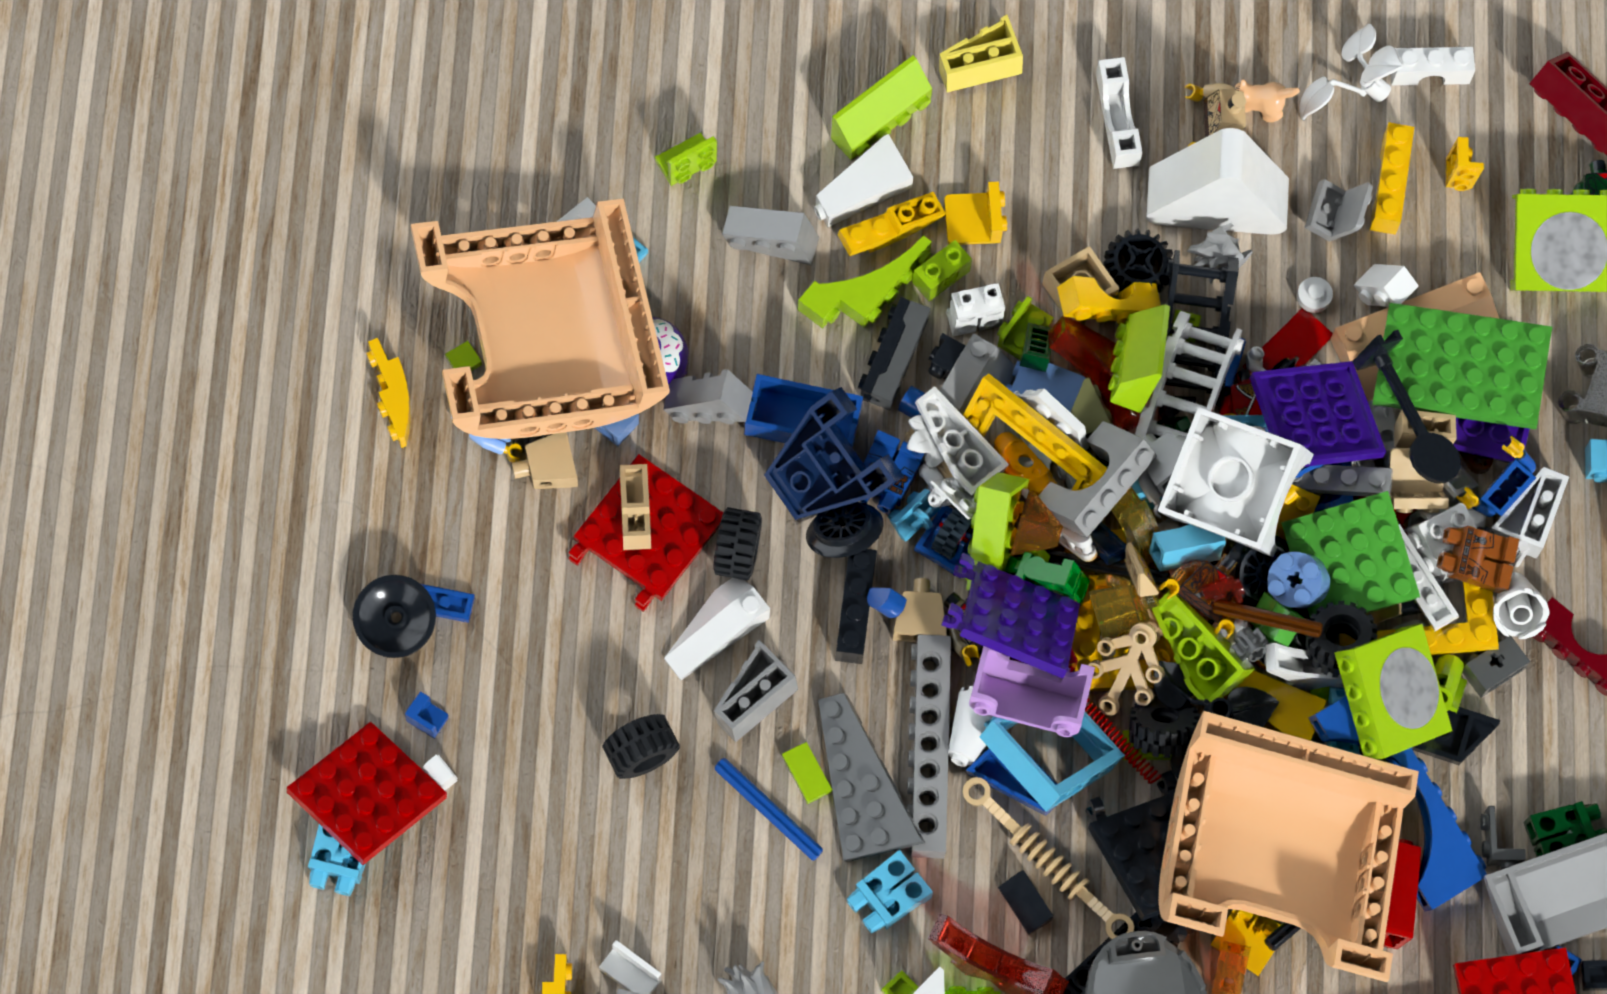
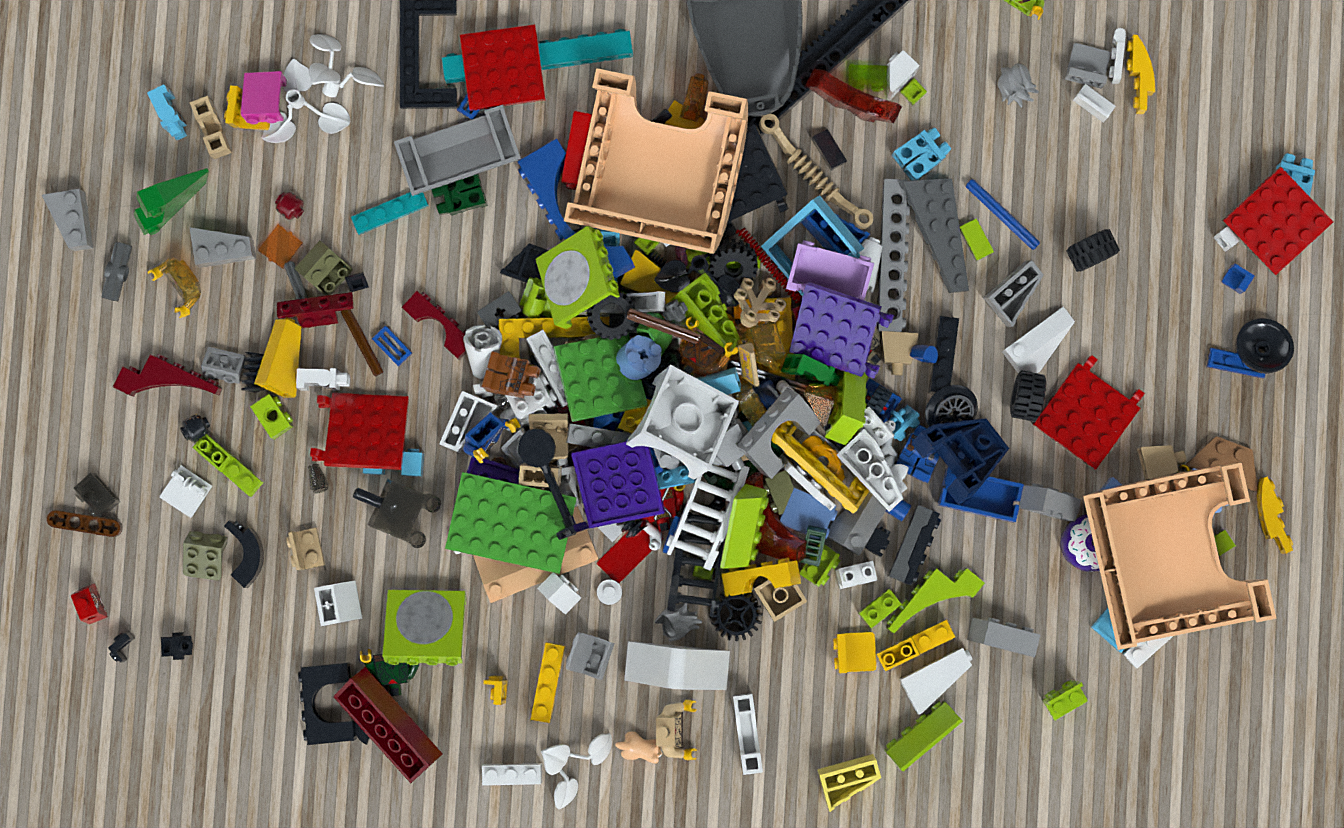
camera: 170 degrees left, 15 degrees up
(452, 465) = (1223, 452): none -> medium nougat wing
(635, 507) = (1099, 425): tan slope -> none
(1218, 588) = (695, 348): clear red bracket -> none
(1497, 857) = (503, 176): dark grey bracket -> none

